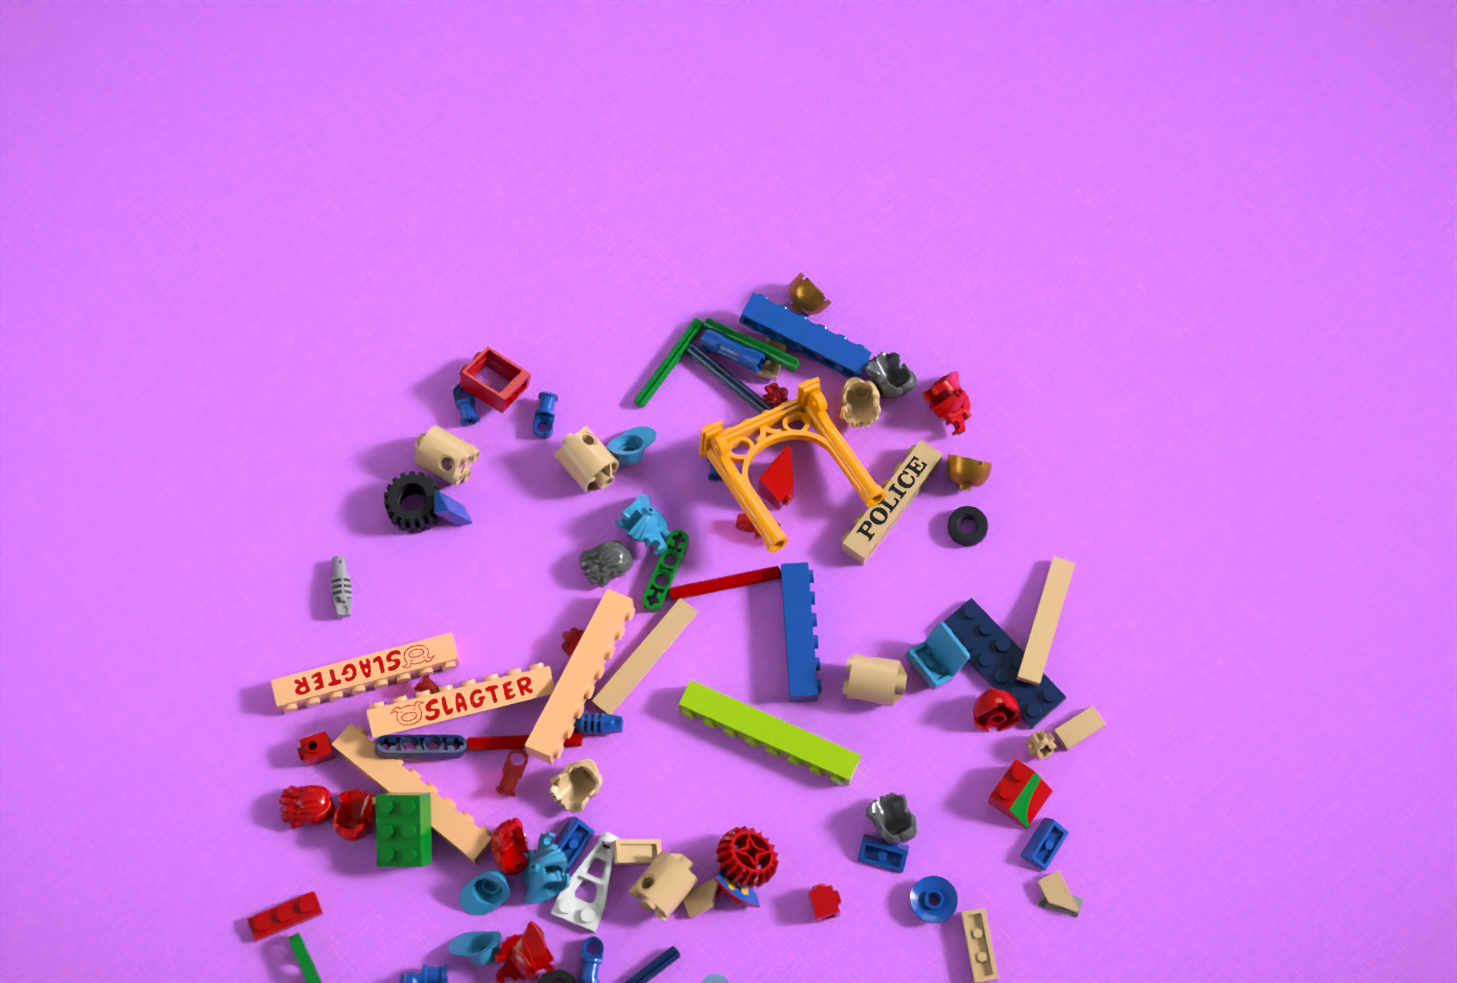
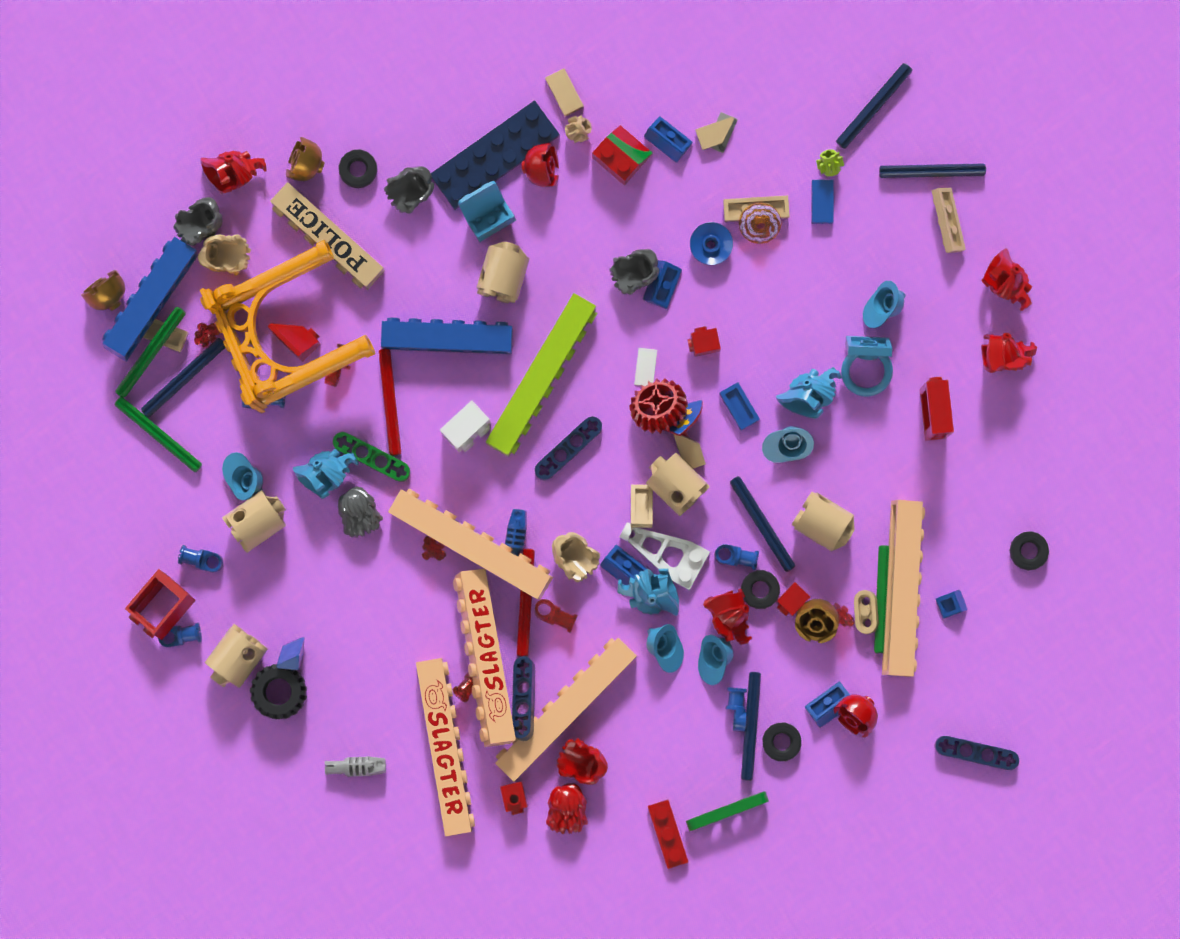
camera: 85 degrees left, 15 degrees up
(403, 829) = (603, 717): green brick -> none
(507, 844) = (624, 625): red hair -> none
(644, 657) = (455, 484): tan tile -> none
(691, 772) = (568, 448): none -> dark blue beam
(704, 658) = (465, 427): none -> white brick
(720, 345) = (164, 358): blue axle -> none
(758, 949) = (739, 406): none -> blue tile
(792, 844) = (645, 366): none -> white sticker
(952, 577) = (409, 188): none -> dark grey hair
(972, 950) = (757, 214): none -> dish
(1045, 621) = (460, 108): tan tile -> none

